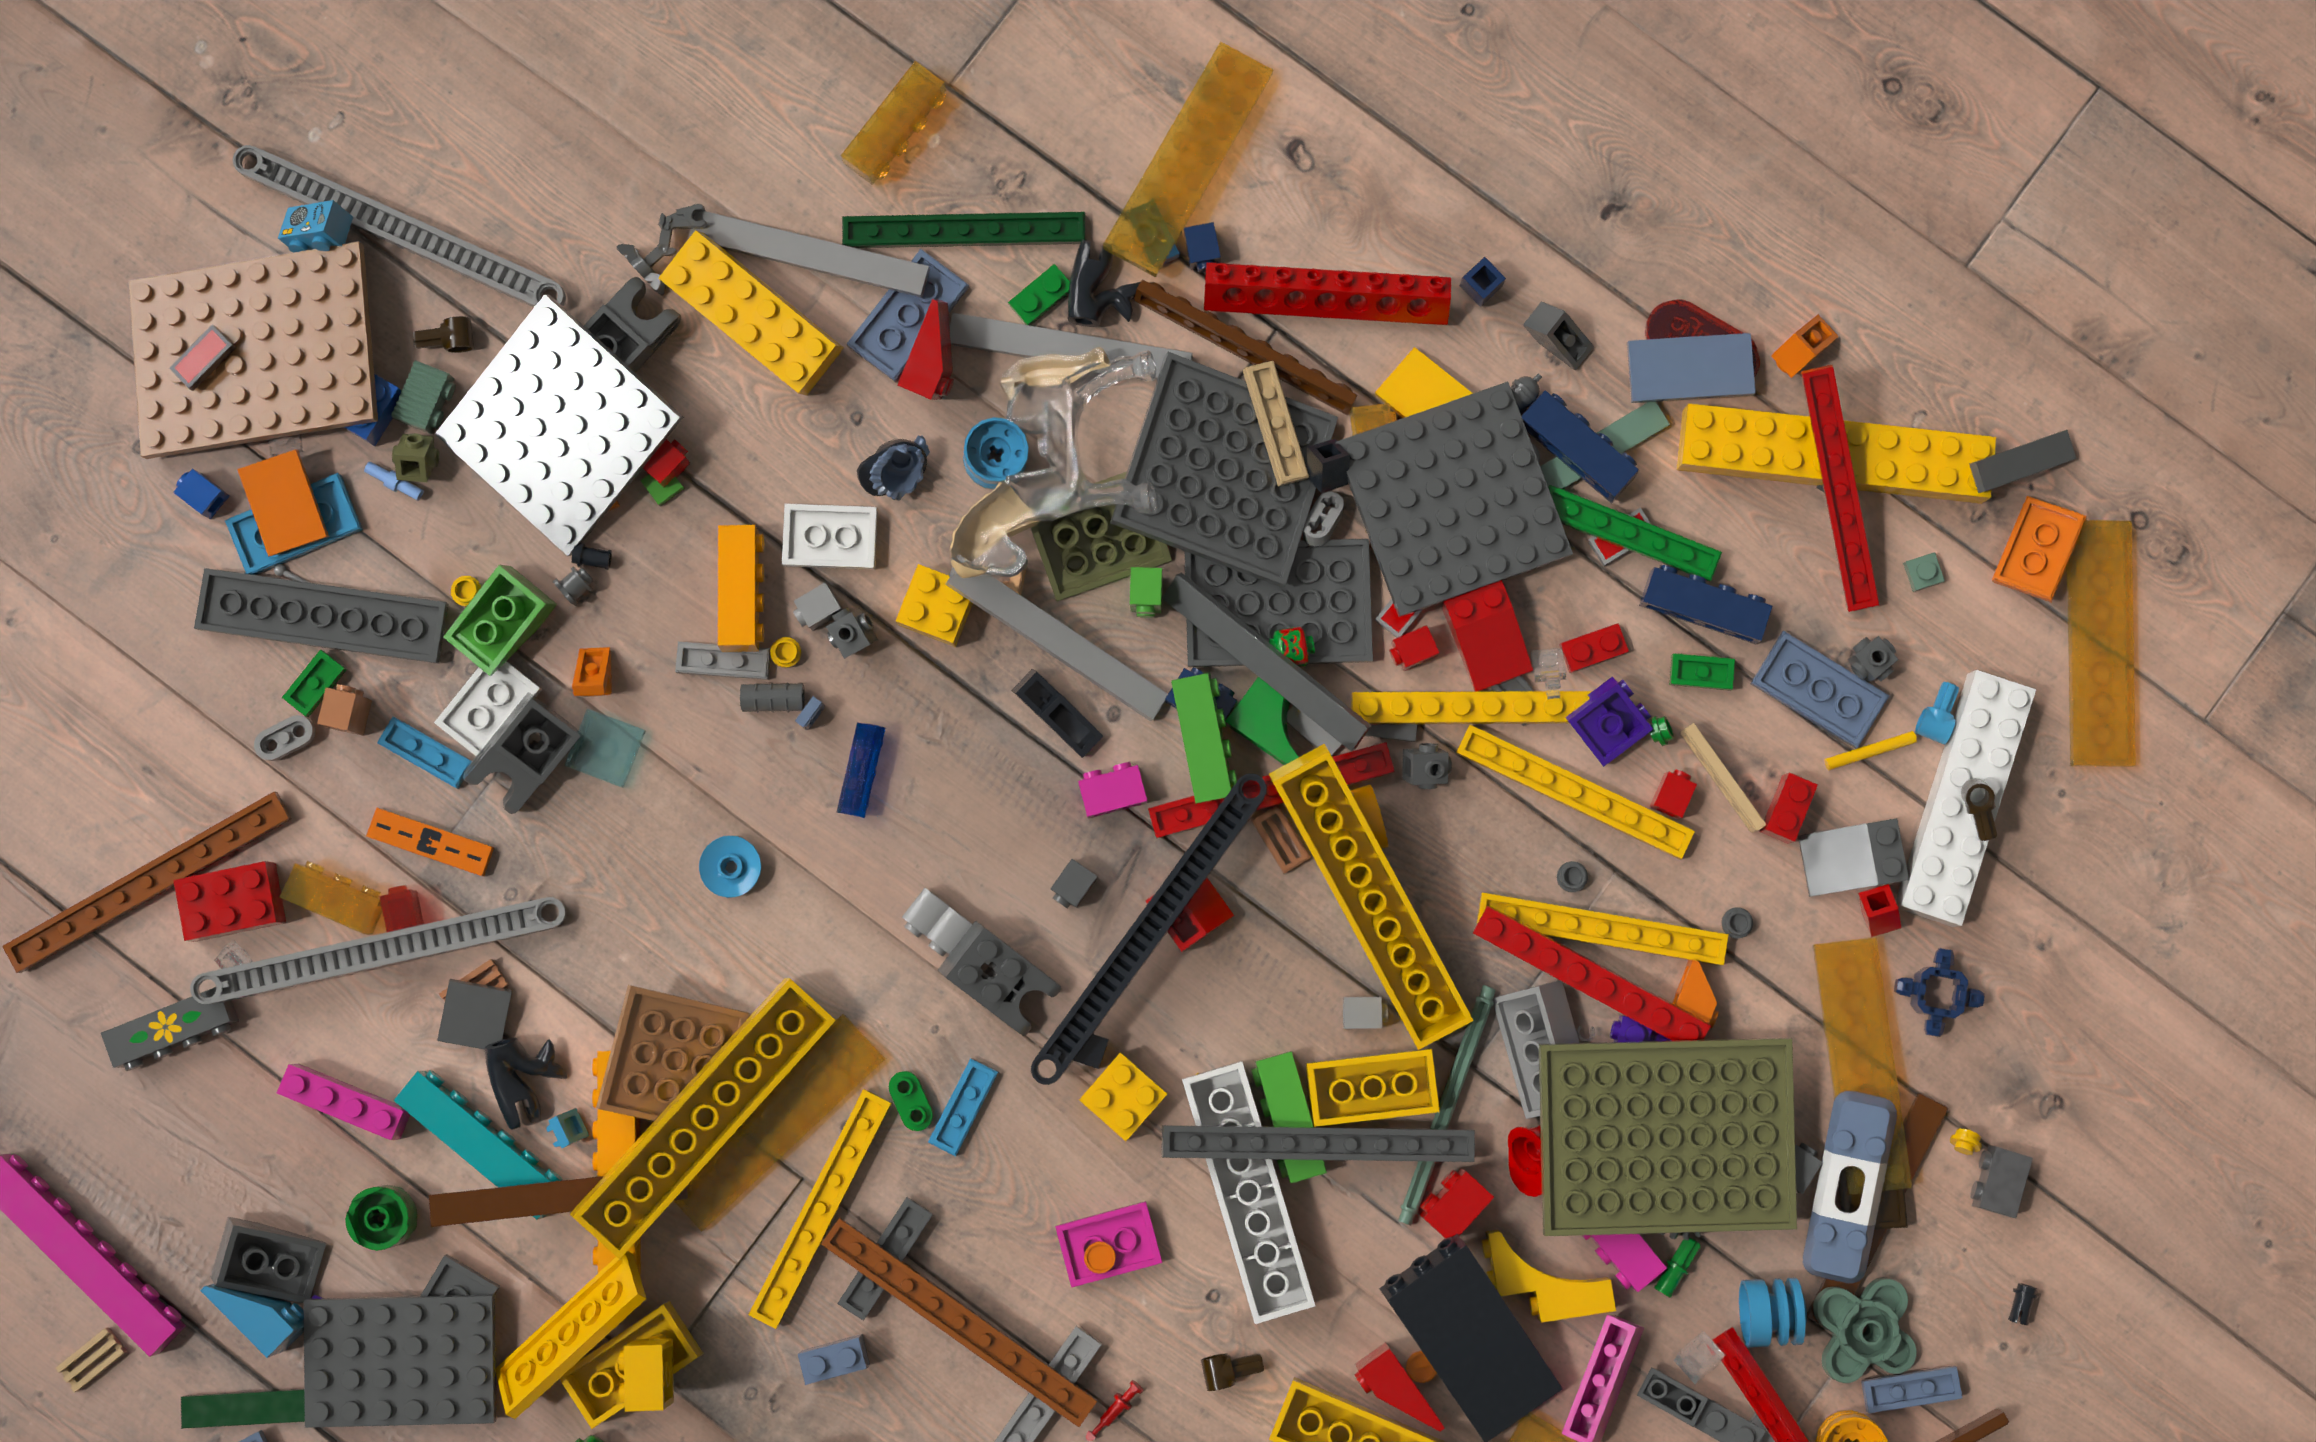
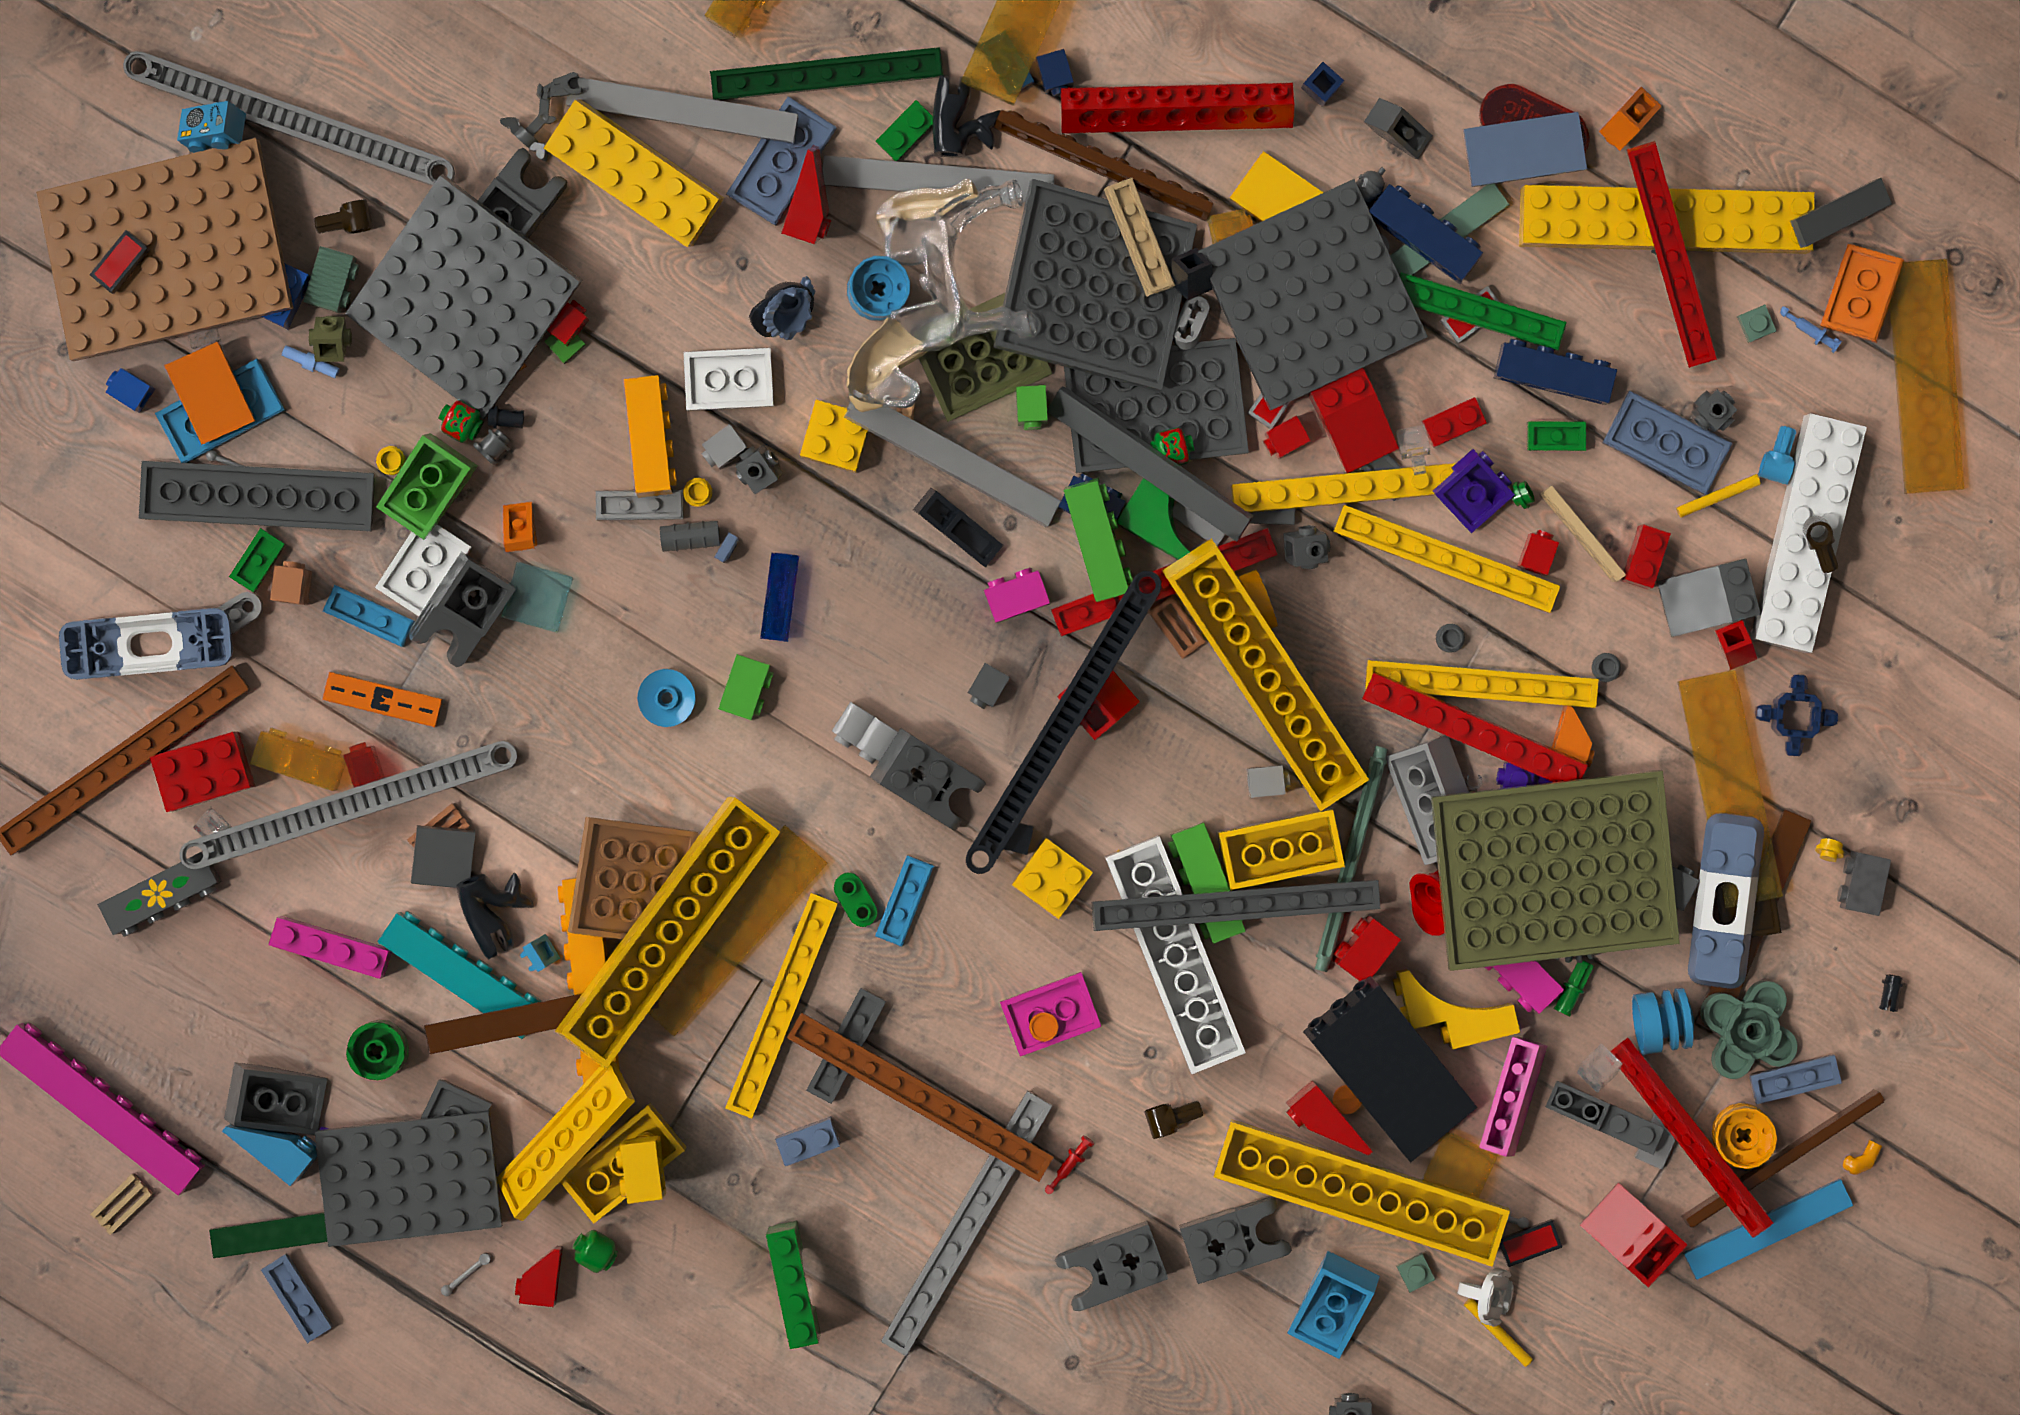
camera: 10 degrees left, 5 degrees up
(142, 760) = (104, 650): none -> sand blue piece
(543, 556) = (460, 421): none -> green head
(815, 863) = (745, 687): none -> bright green brick
(1982, 584) = (1811, 330): none -> medium blue piece

